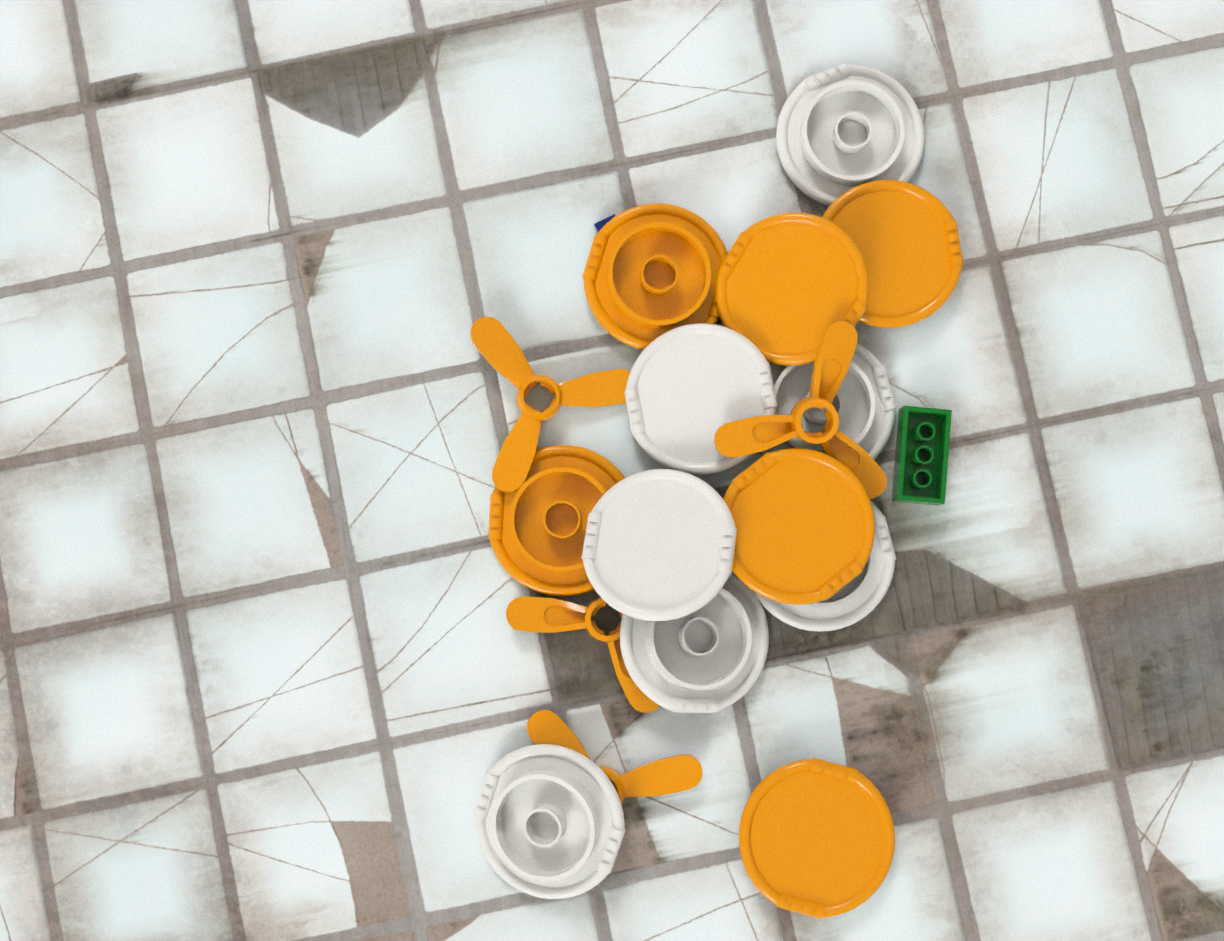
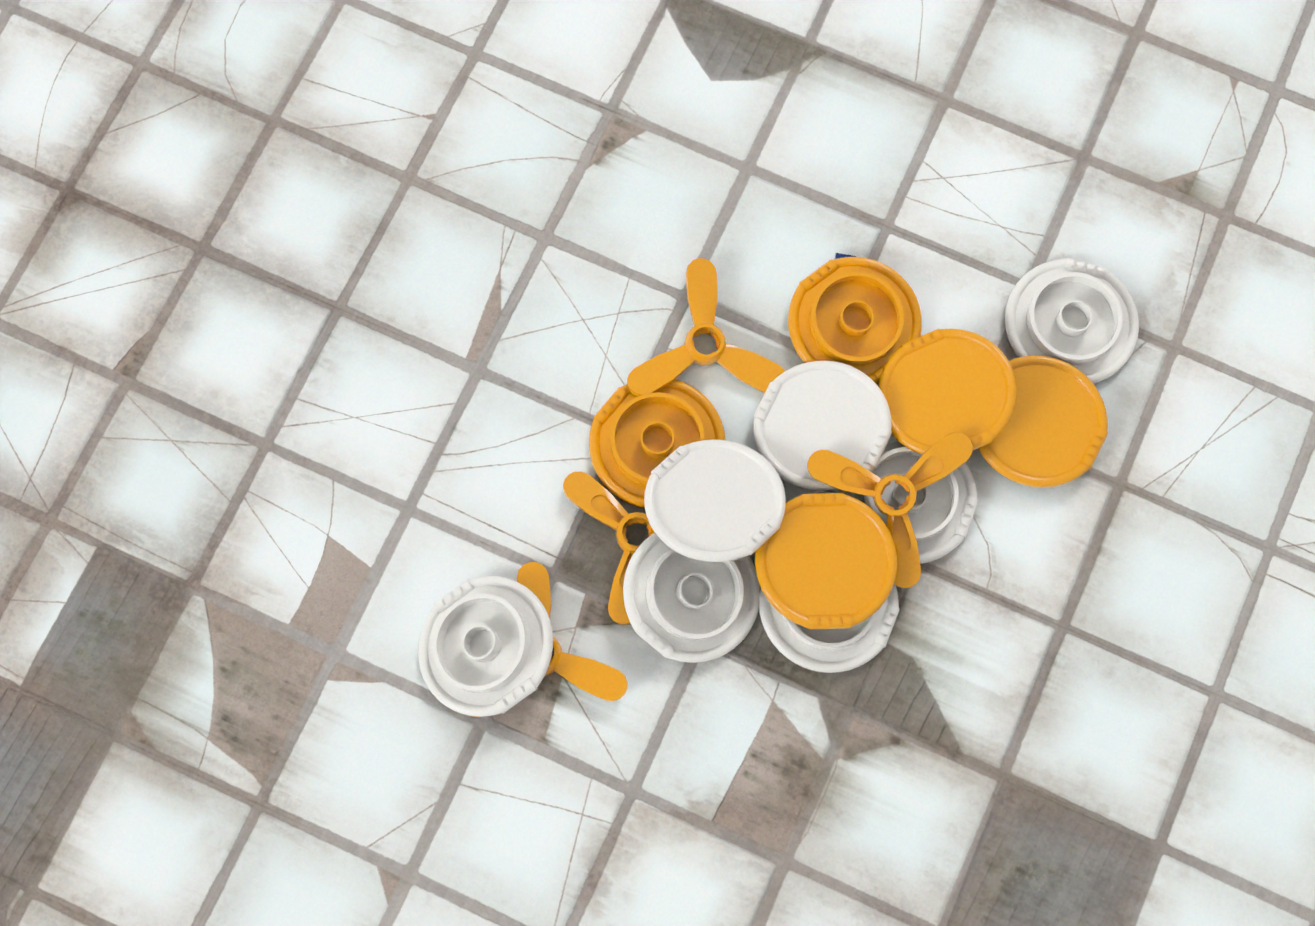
camera: 30 degrees right, 10 degrees down
(816, 838) = (673, 805): light orange piece -> none
(921, 455) = (958, 583): green brick -> none

